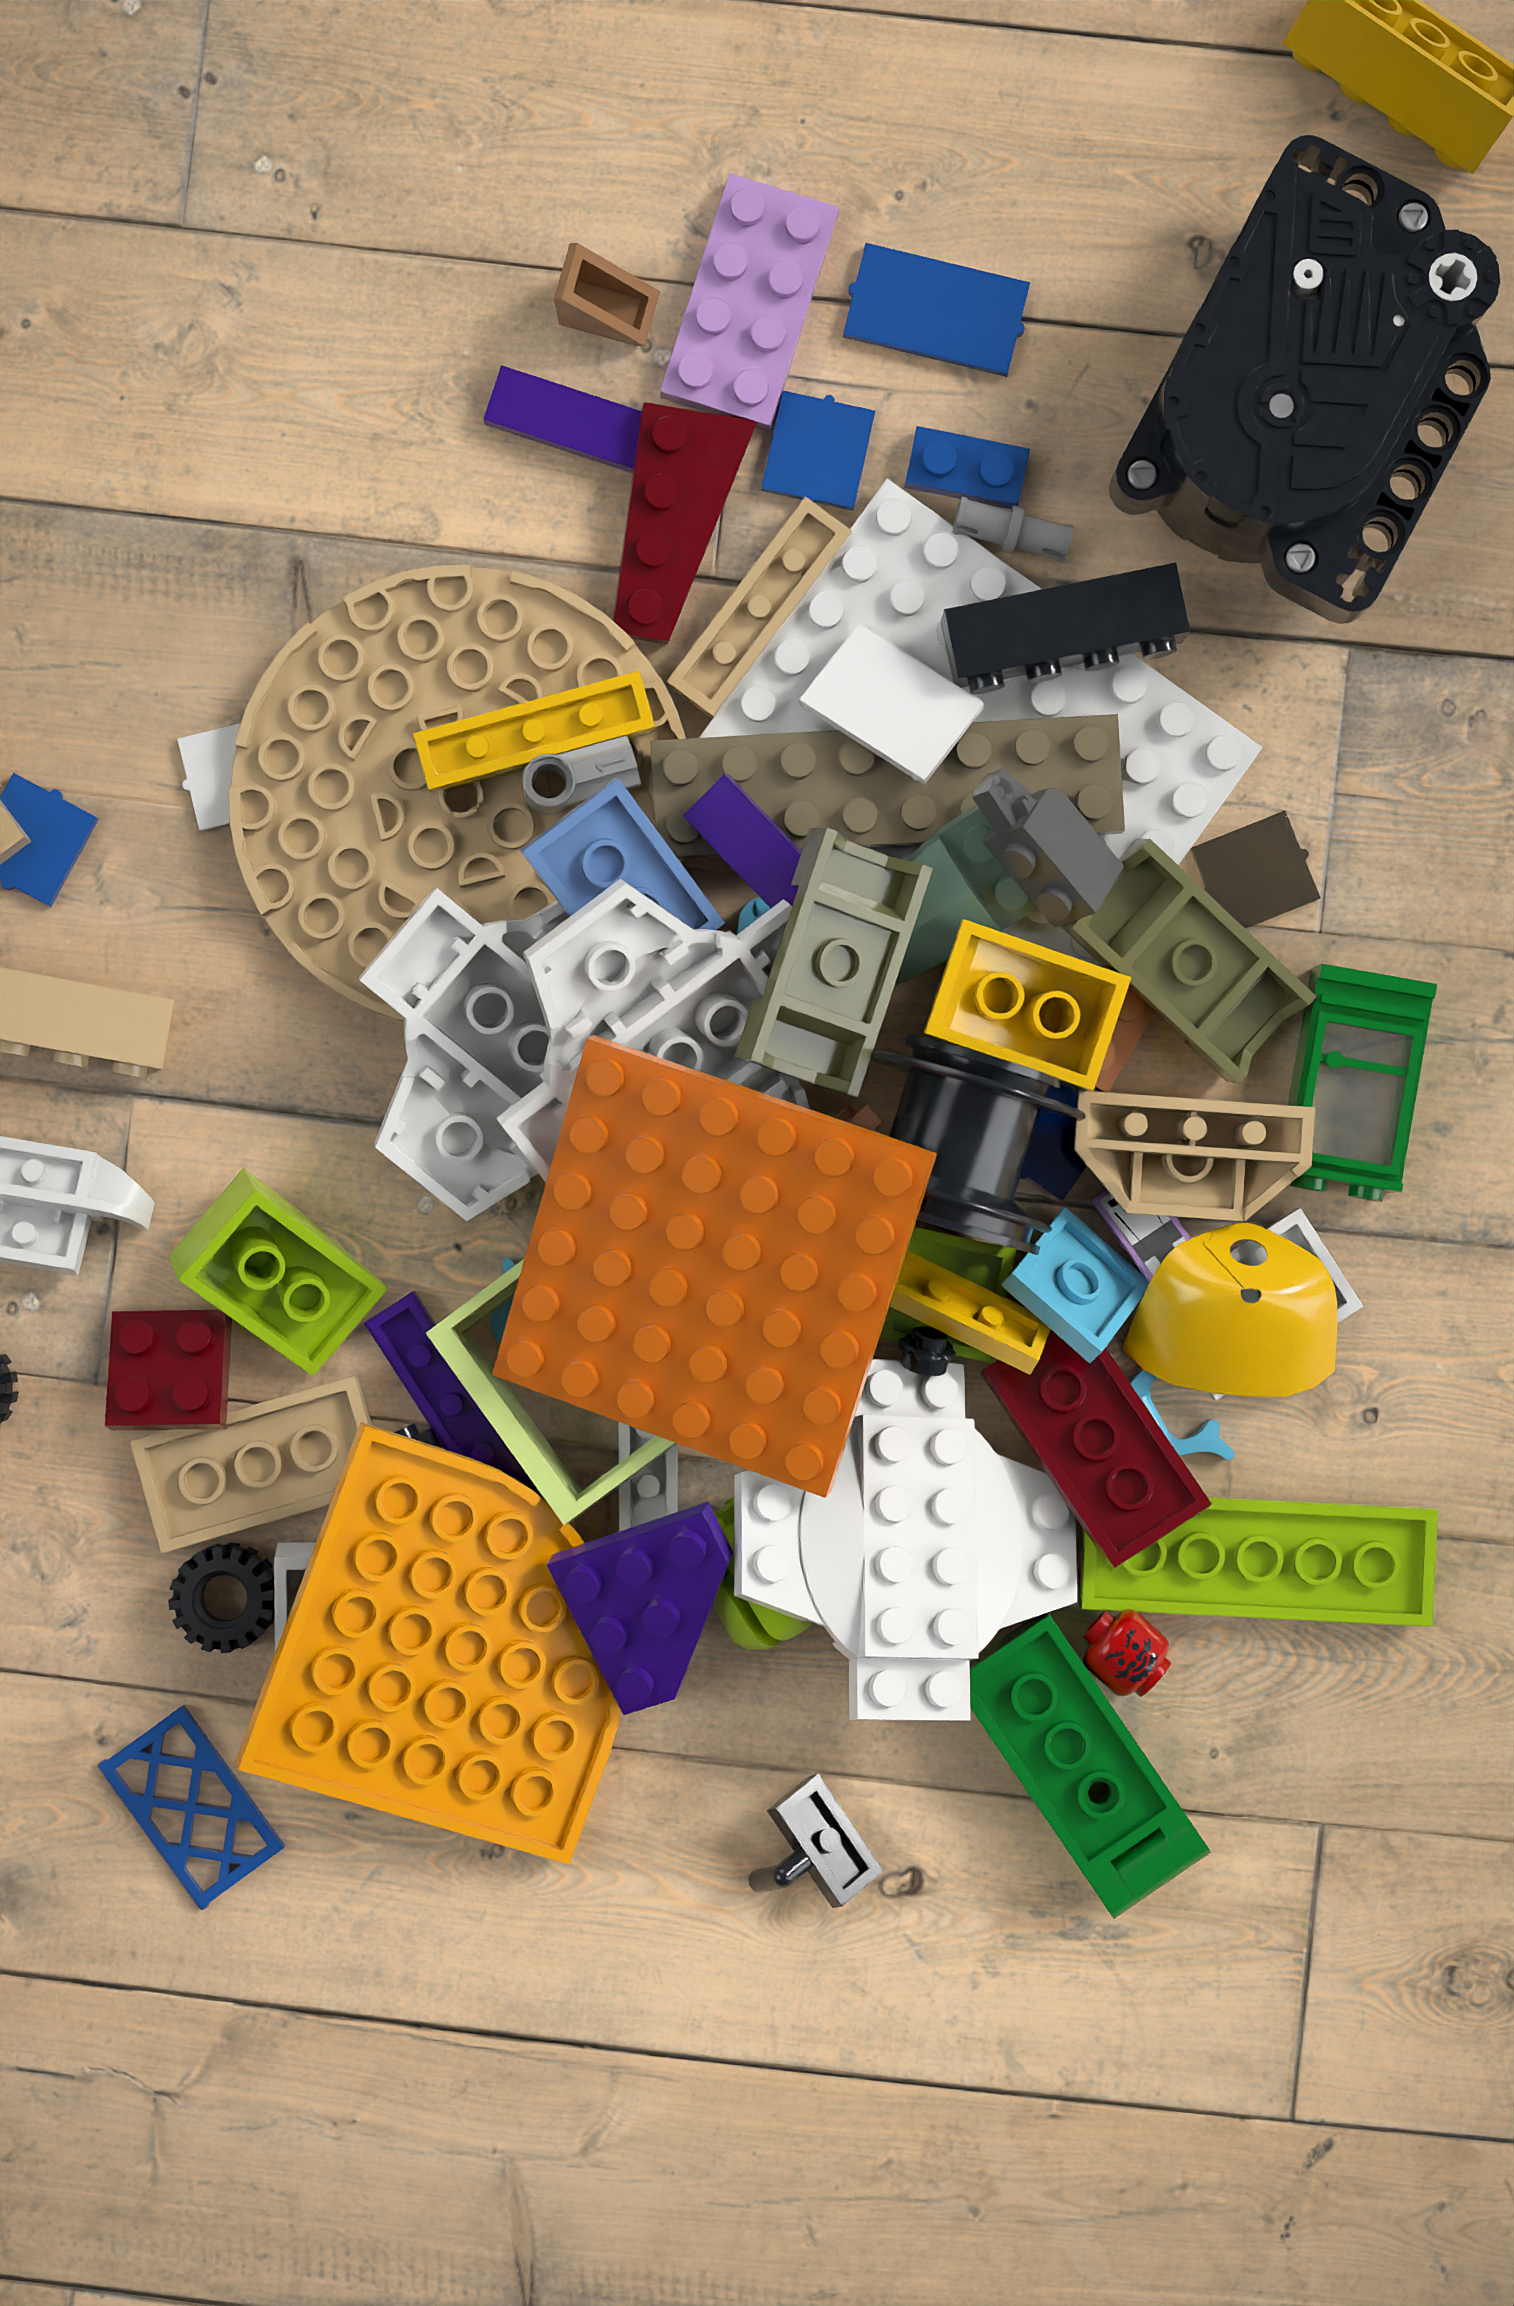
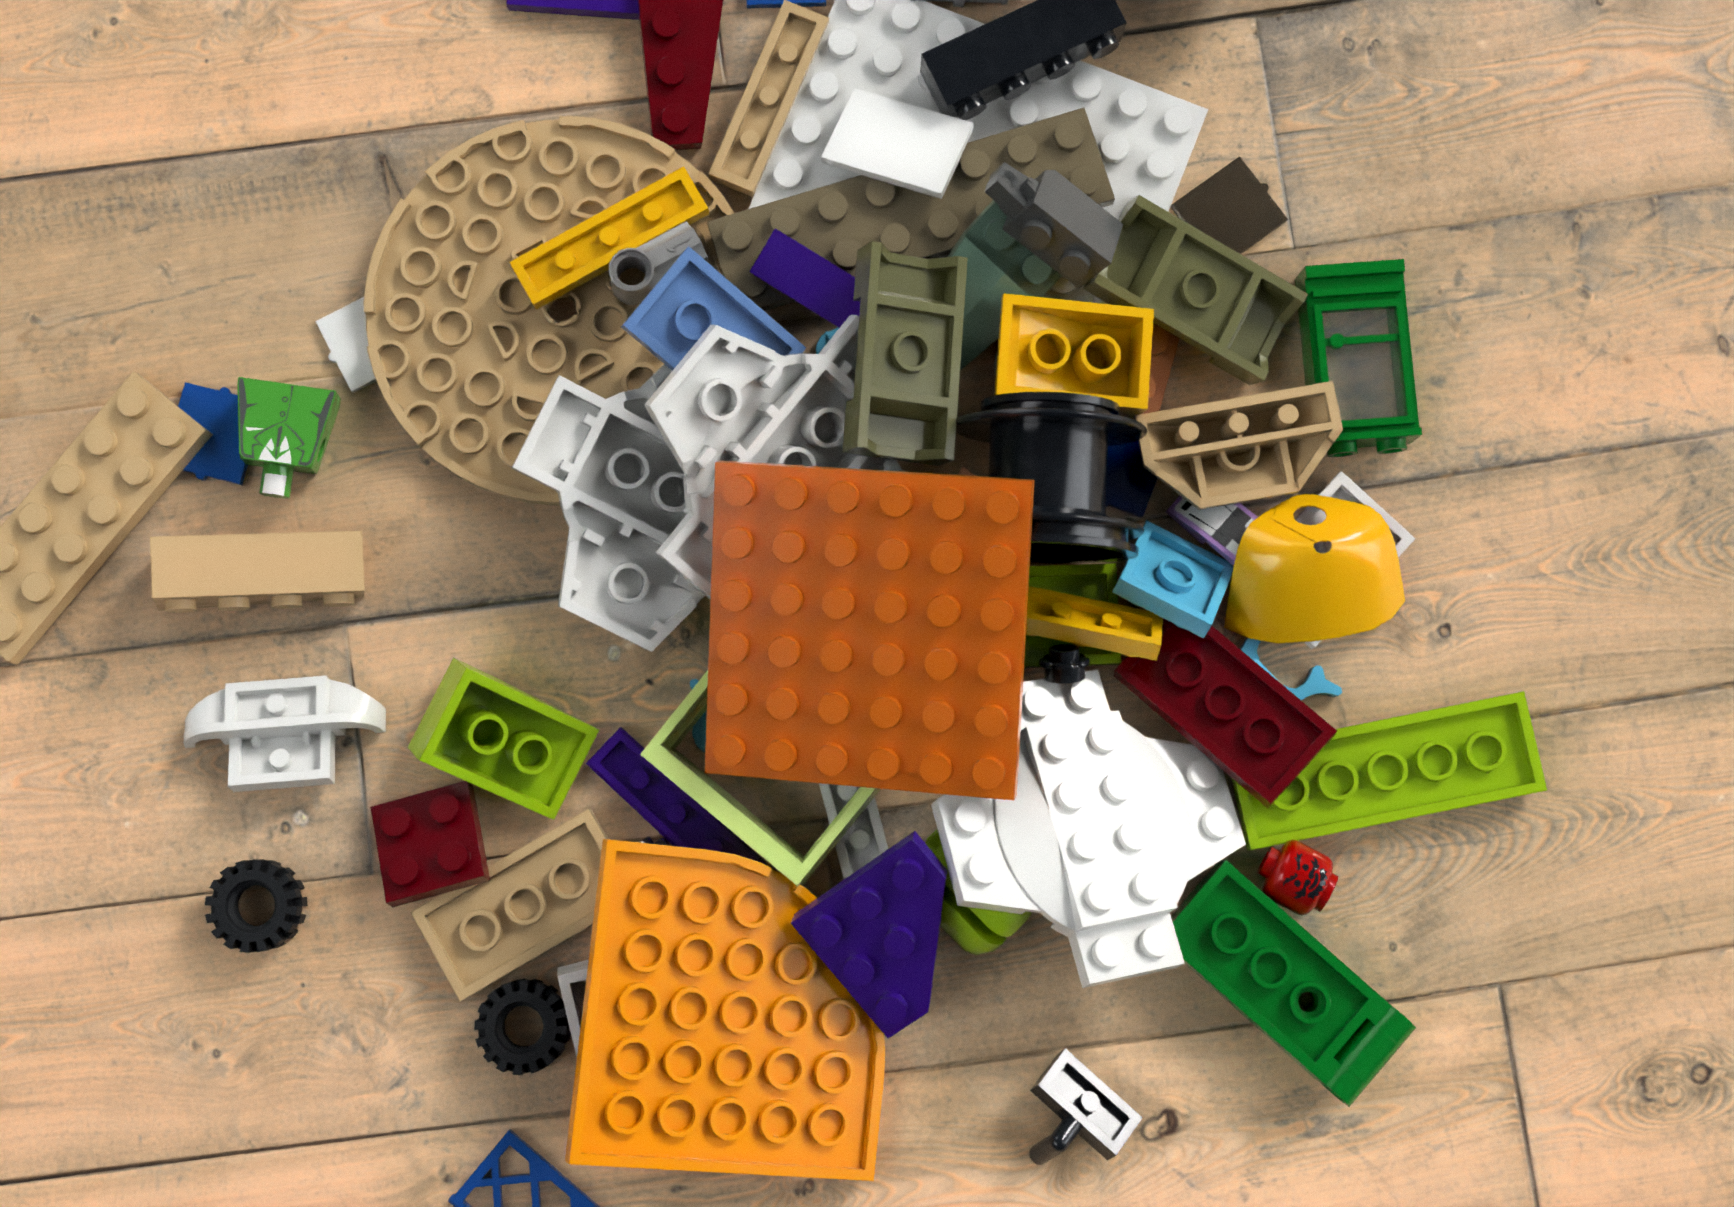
camera: 15 degrees left, 5 degrees down
(112, 860) = (283, 430): none -> bright green torso

